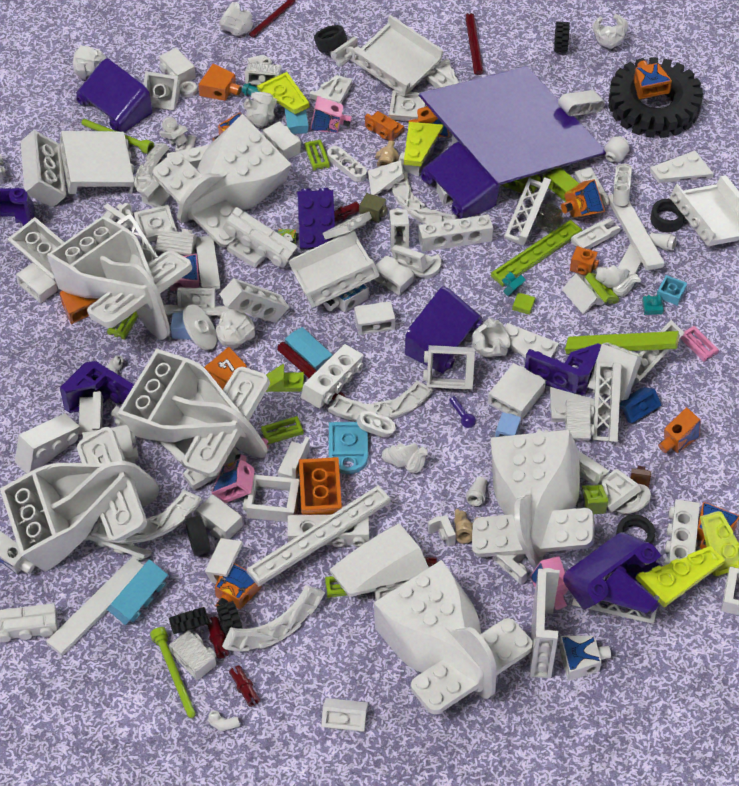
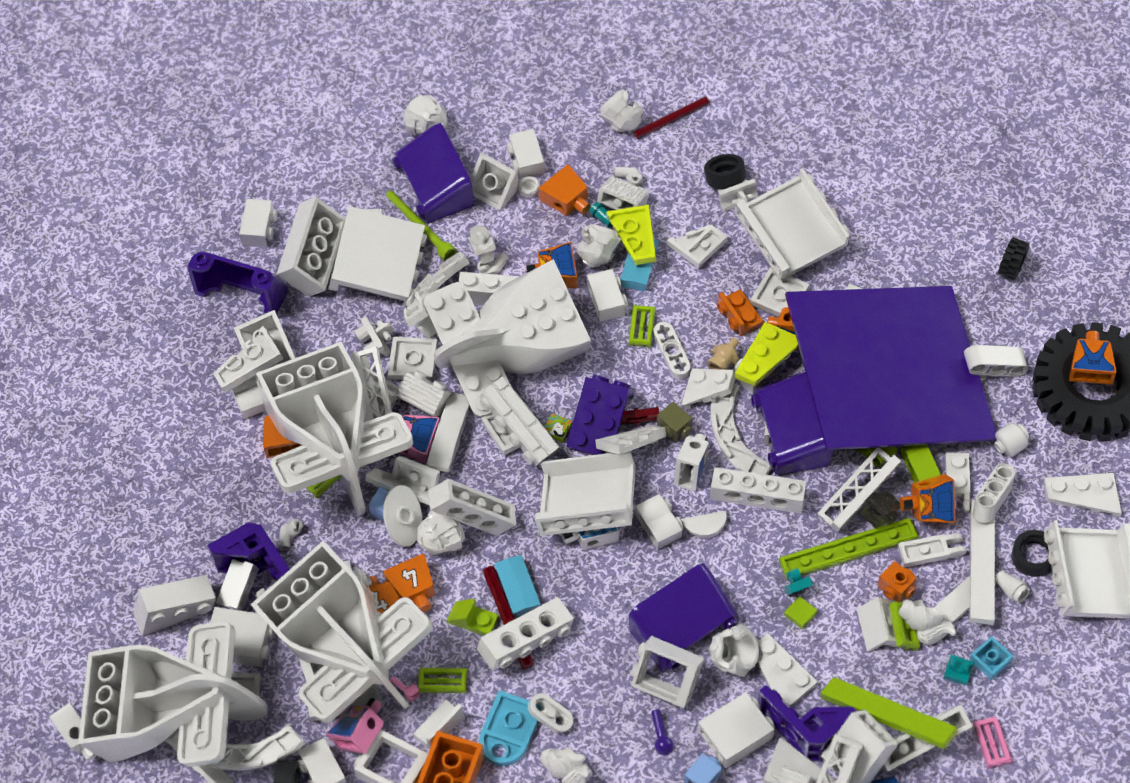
camera: 25 degrees right, 5 degrees up
(32, 256) = (255, 357): none -> white wing
(328, 116) = (674, 280): torso -> none
(374, 318) = (611, 571): white brick -> none
(391, 409) = (572, 697): white tile -> none
(411, 258) = (691, 507): white panel -> none
(442, 75) = (841, 267): white wing -> none
(474, 44) = (902, 231): dark red axle -> none
(608, 35) = (1078, 273): white helmet -> none

